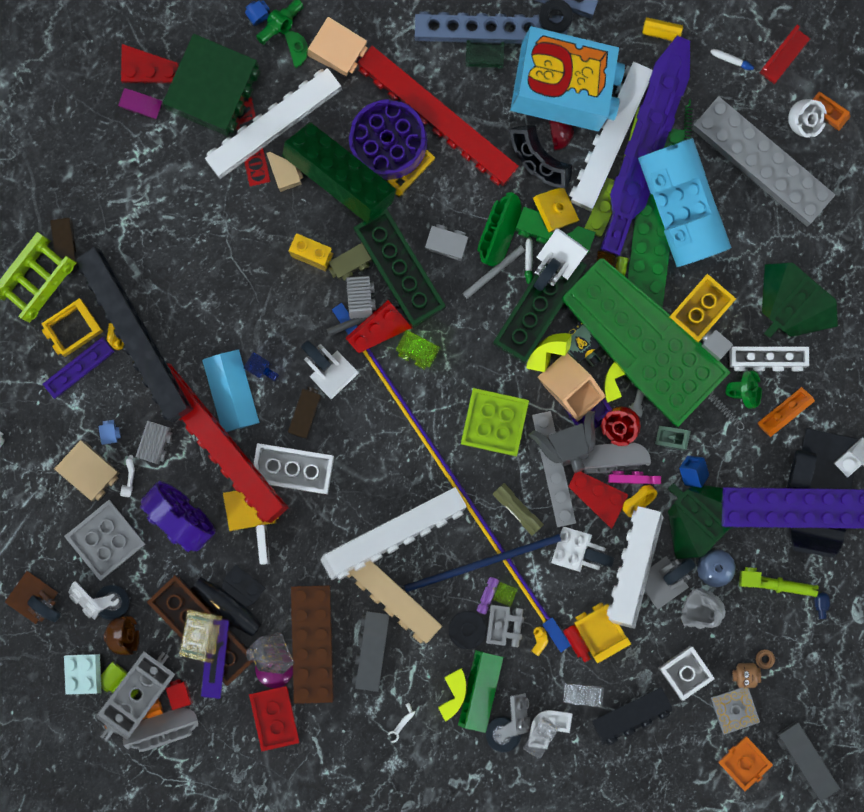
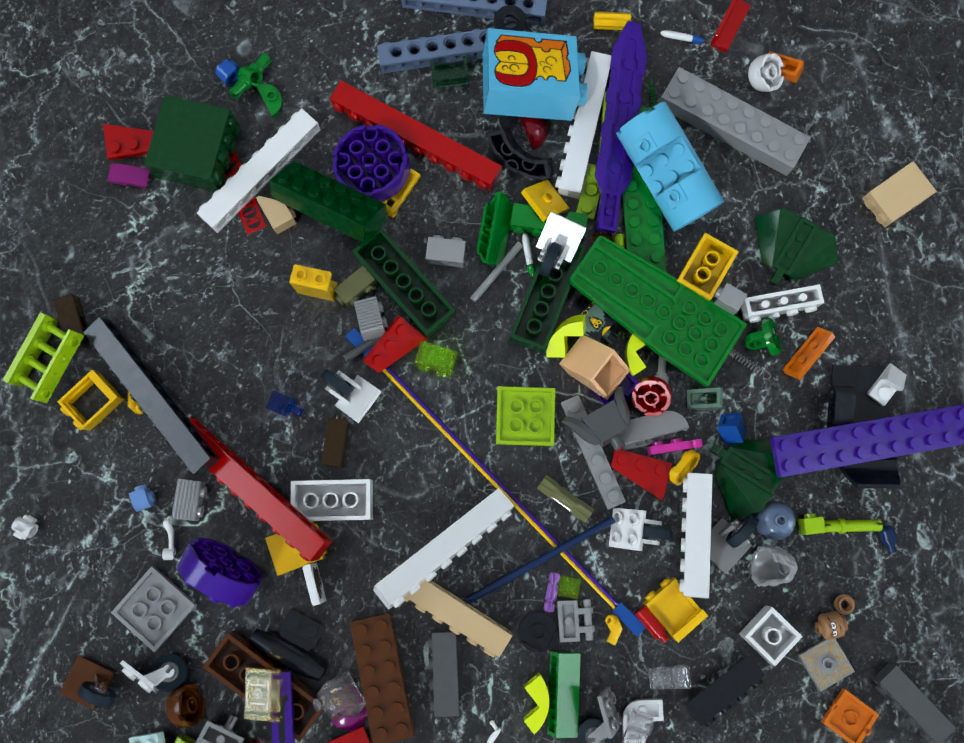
camera: 10 degrees left, 5 degrees down
(78, 367) = (104, 439): dark purple tile -> none
(87, 471) = (123, 541): tan slope -> none
(230, 390) = (259, 434): medium azure slope -> none
(337, 47) = (306, 86): light nougat slope -> none

